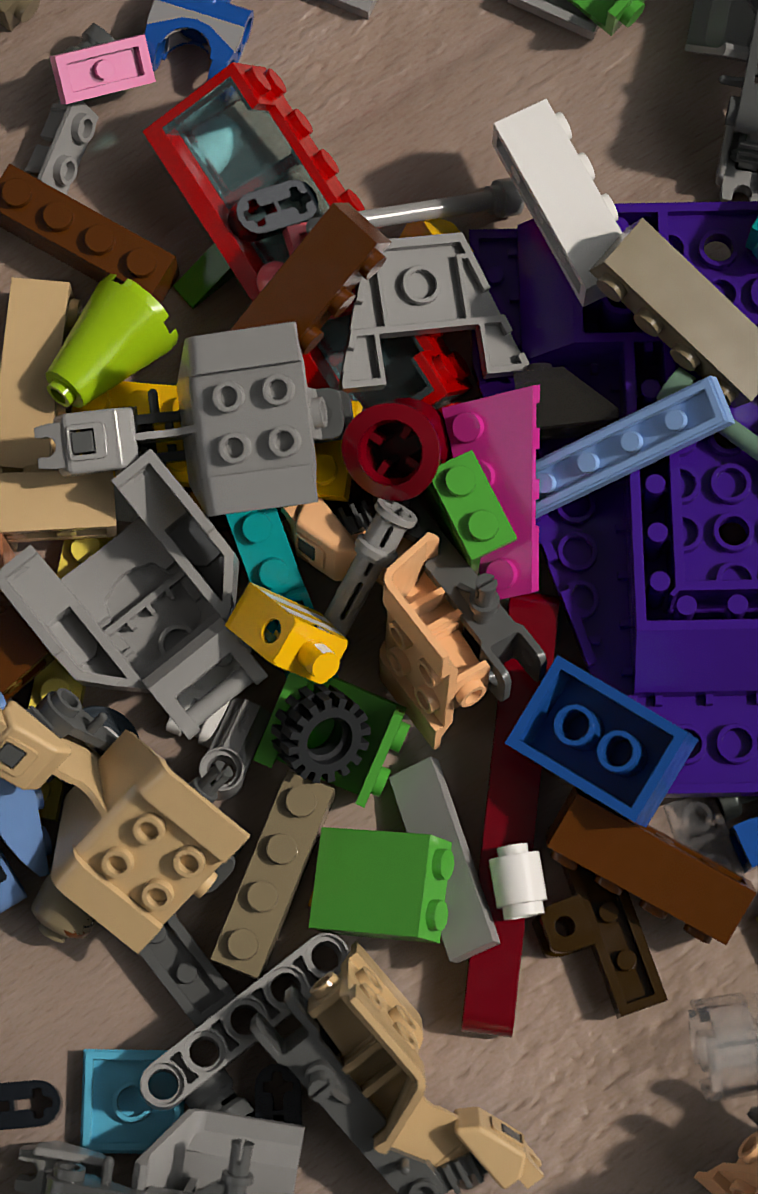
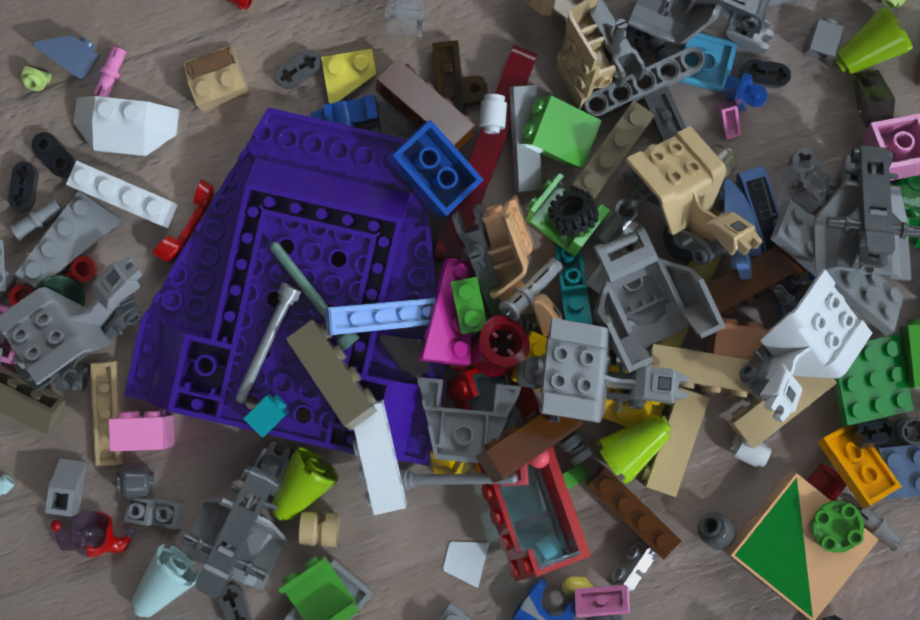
camera: 170 degrees left, 10 degrees up
(44, 1049) = (745, 92): none -> blue hips
(63, 1001) = (729, 119): none -> bright pink piece
(150, 96) = (575, 582): none -> light yellow arm
(205, 317) = (580, 452): none -> dark grey wheel
(269, 200) = (530, 490): black beam -> none
(307, 639) = (579, 261): yellow torso -> none
(358, 92) = (466, 560): none -> white sticker
(633, 76) = (319, 529): none -> tan wheel
(683, 146) = (302, 483): none -> lime cone

